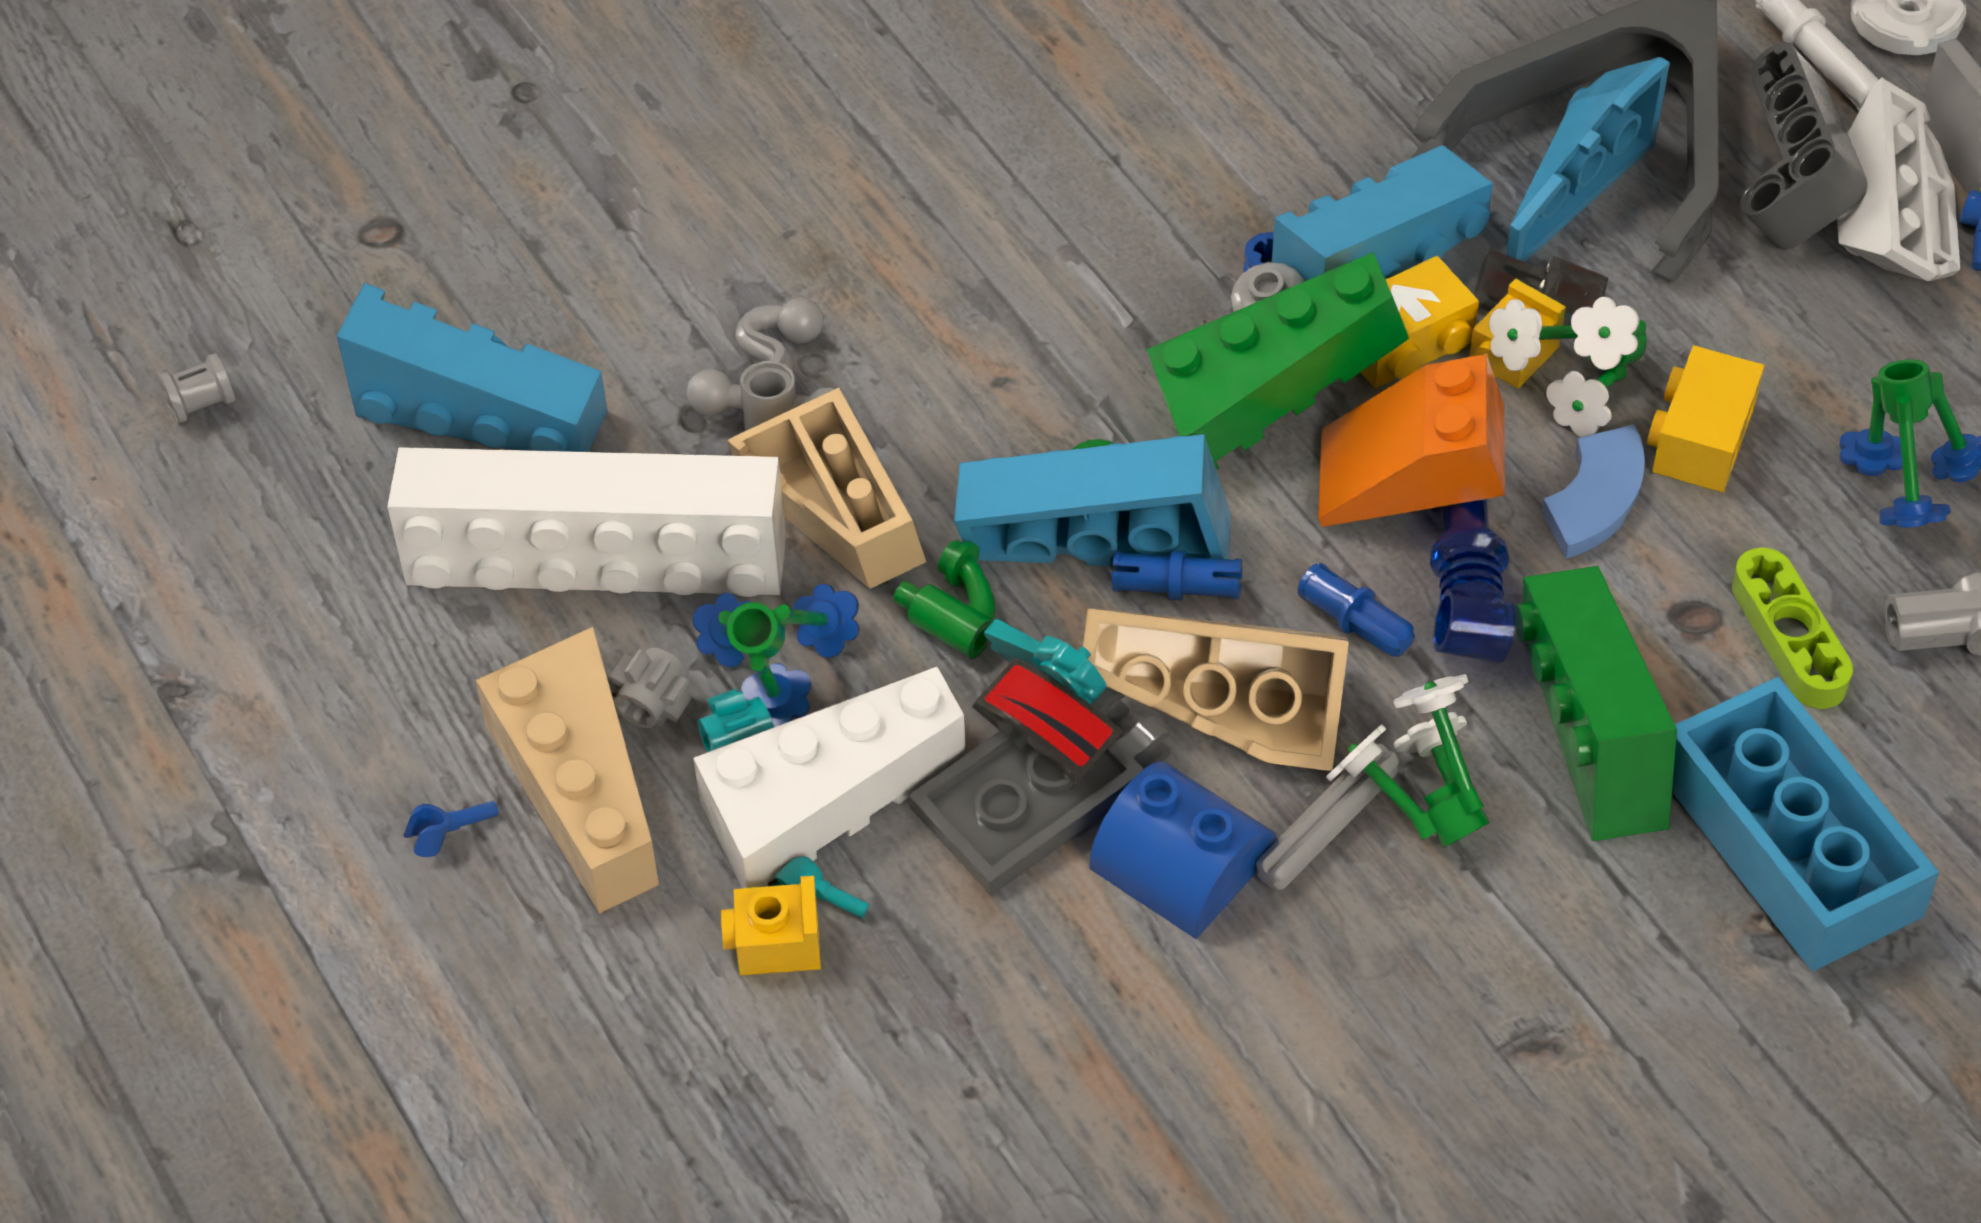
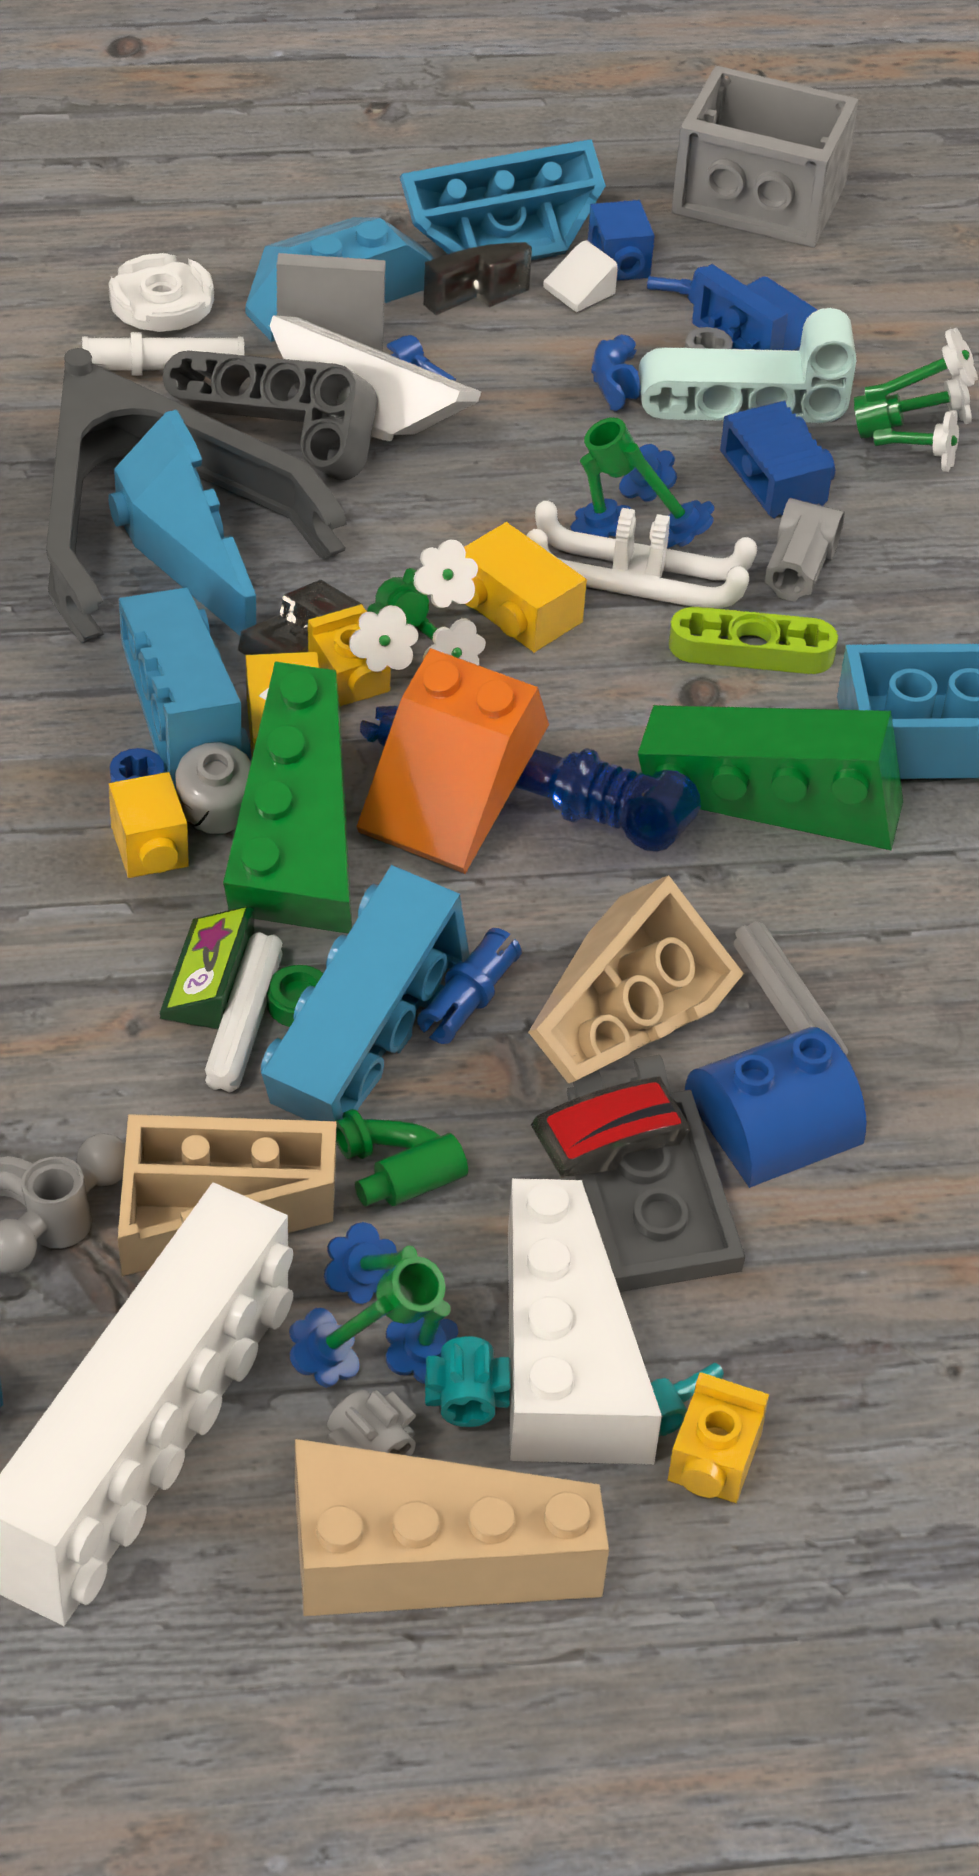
camera: 70 degrees left, 5 degrees down
(433, 823) = (431, 1694): blue hand -> none
(1049, 656) = (569, 1080): teal piece -> none
(1086, 401) = (208, 967): none -> slope
(1114, 425) = (243, 1013): none -> white axle
(1202, 282) = (148, 824): none -> yellow brick
(1356, 610) = (583, 883): blue axle -> none
(1454, 808) = (840, 909): green plant -> none
(1600, 494) = (562, 689): medium blue tile -> none
(1822, 493) = (640, 566): none -> white piece

